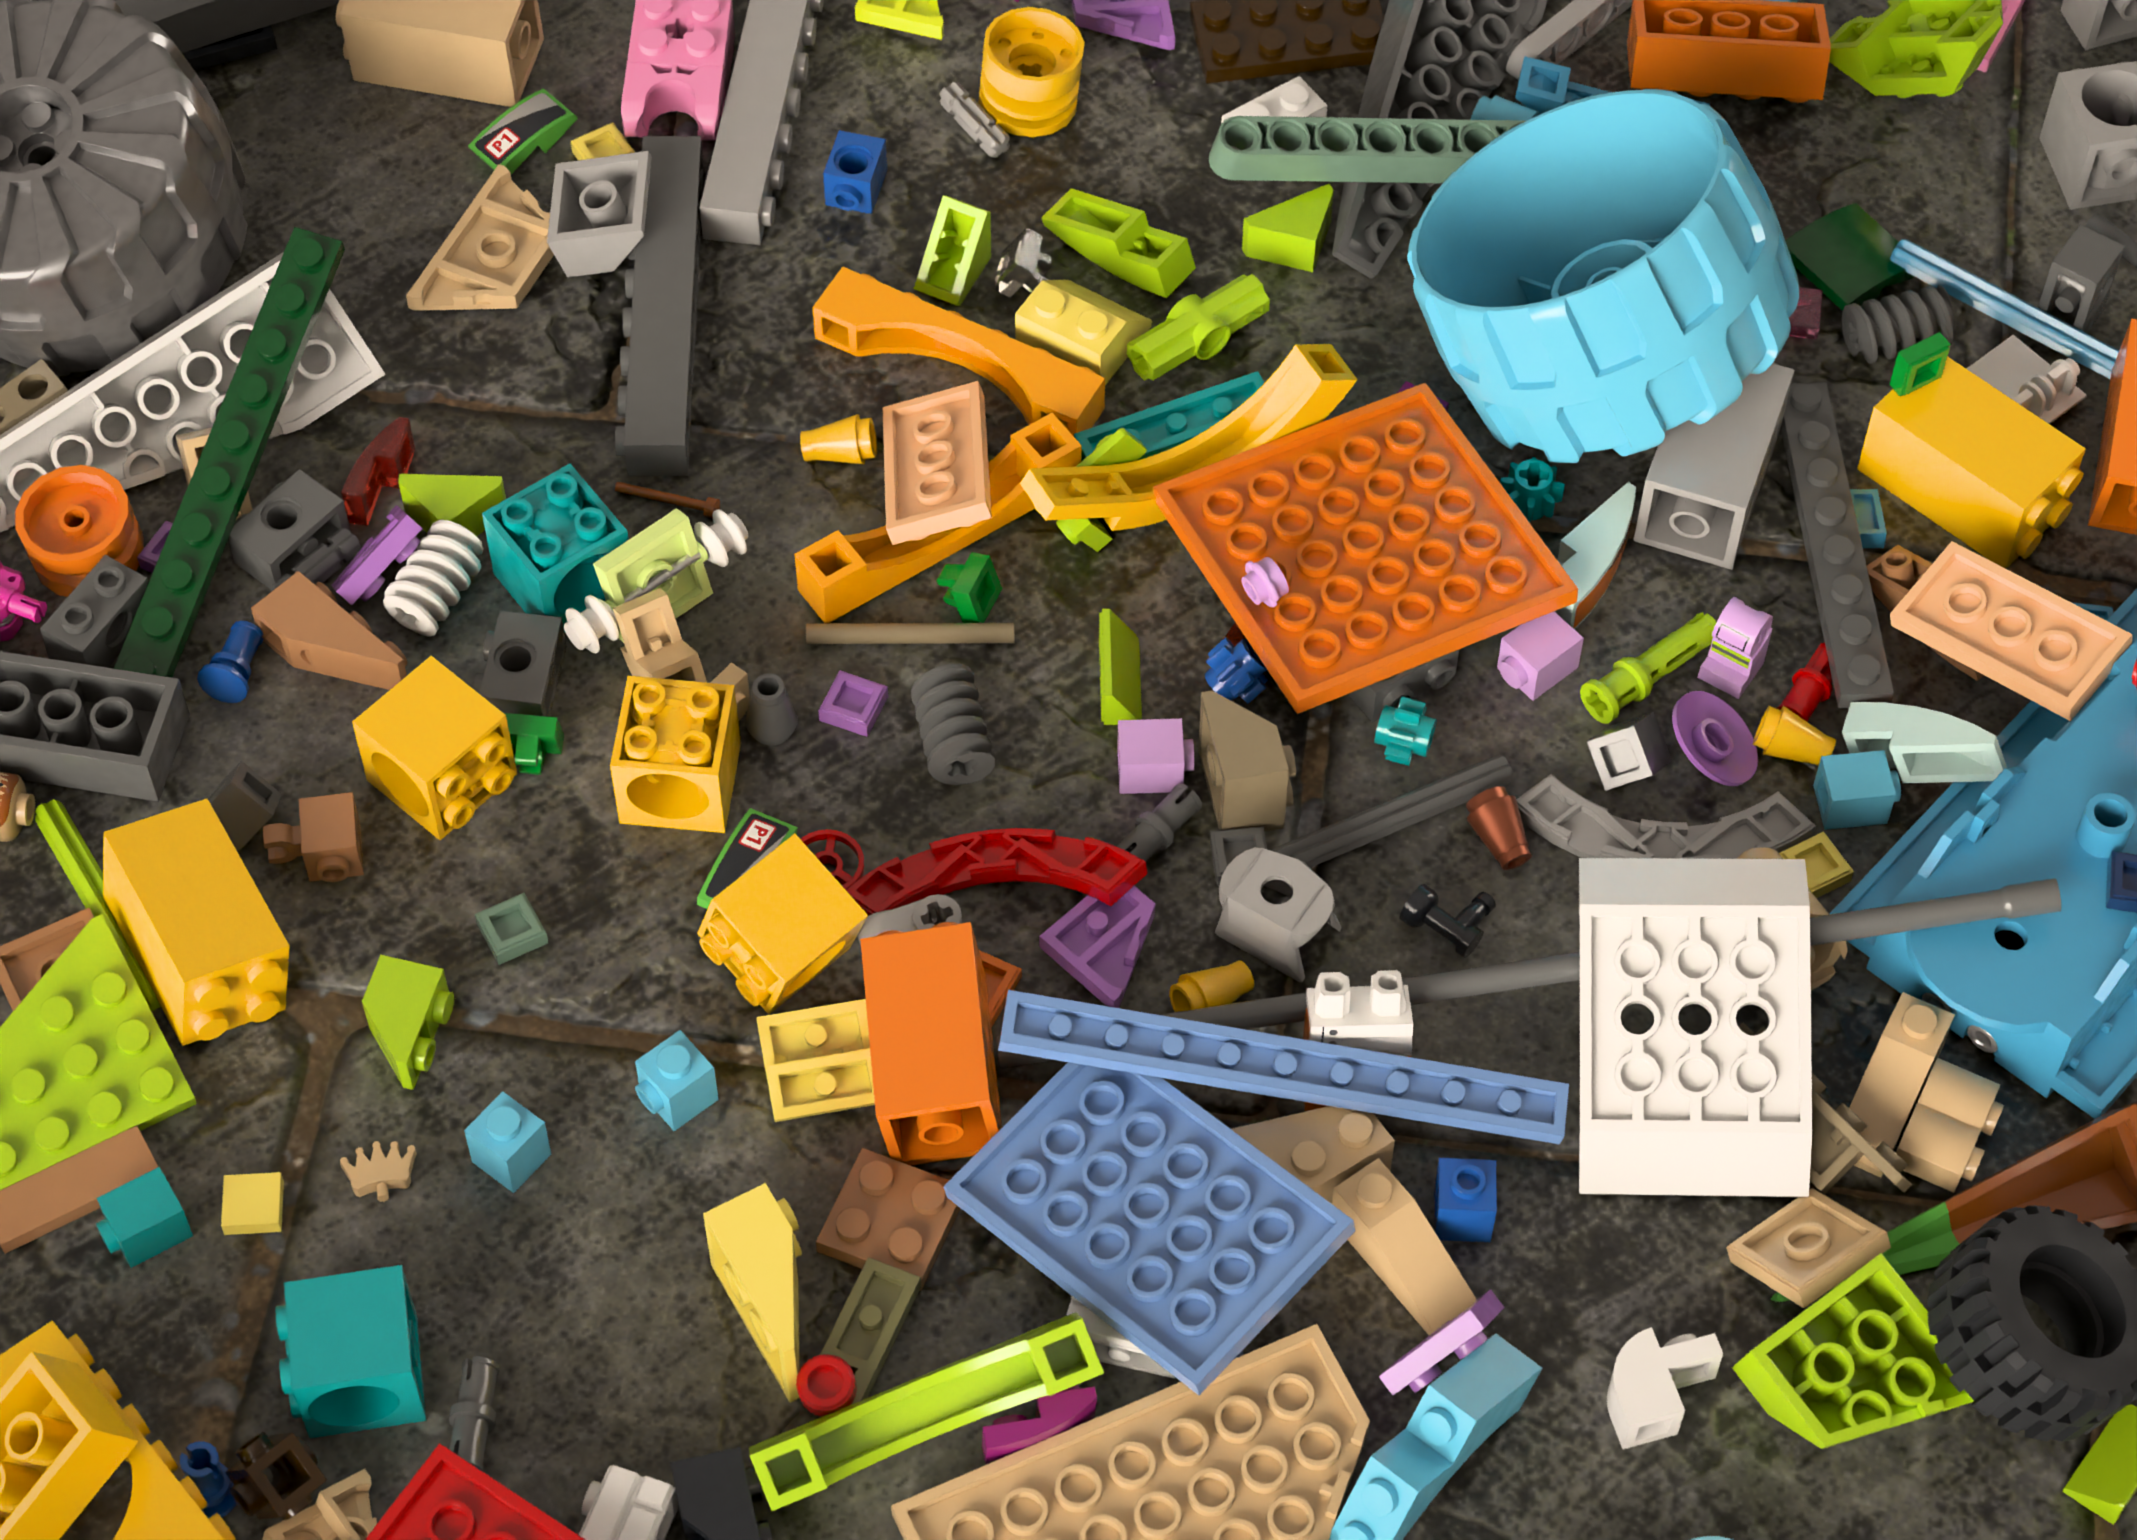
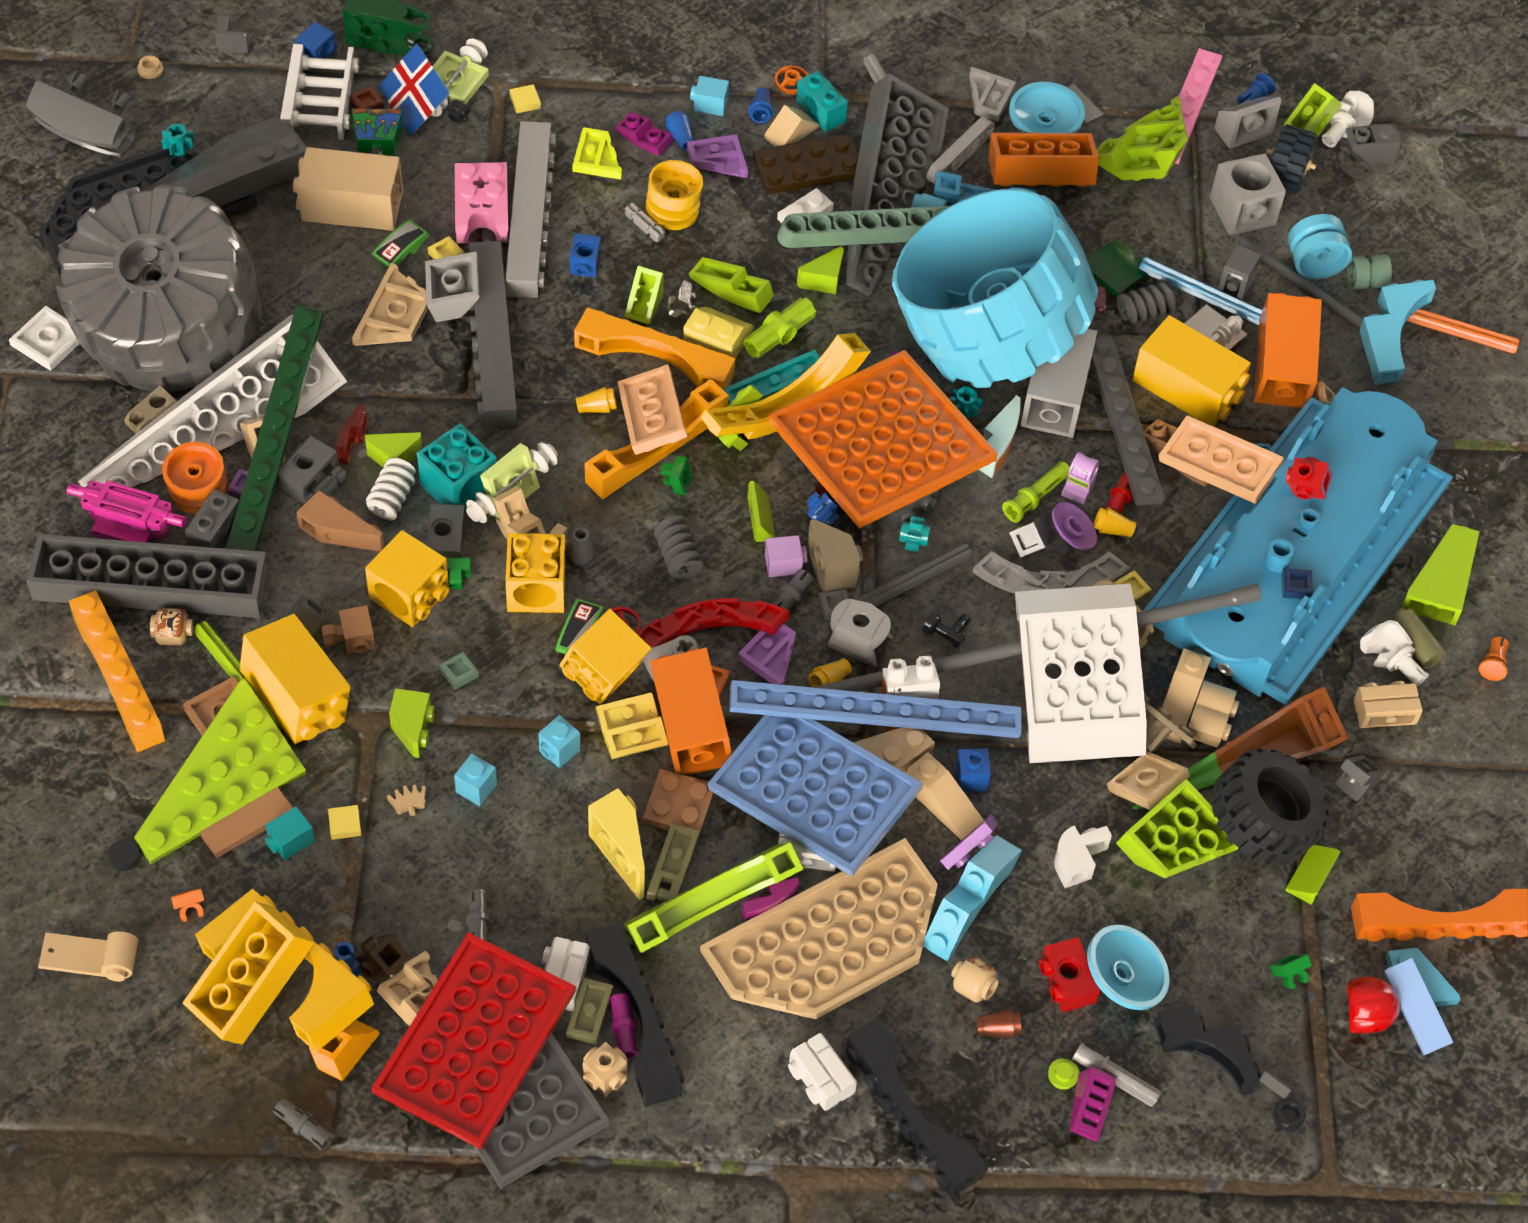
camera: 10 degrees left, 0 degrees up
(230, 669) = (287, 546): blue pin -> none
(351, 1352) = (412, 891): teal brick -> none
(363, 574) = (357, 480): medium lavender wing -> none
(708, 506) = (531, 441): dark orange piece -> none
(826, 1384) = (659, 888): red tile -> none
(853, 703) = (622, 540): medium lavender tile -> none
(909, 633) = (647, 501): dark tan bar -> none
(1264, 582) = (835, 461): lavender plate -> none
(1500, 827) = (968, 579): copper cone -> none
(1539, 654) = (979, 489): lavender brick -> none
(1856, 789) = (1148, 547): medium azure brick -> none
(1869, 517) = (1141, 405): piece -> none
(1920, 364) = (1162, 324): green tile -> none
(1923, 743) = (1180, 521): light aqua slope -> none

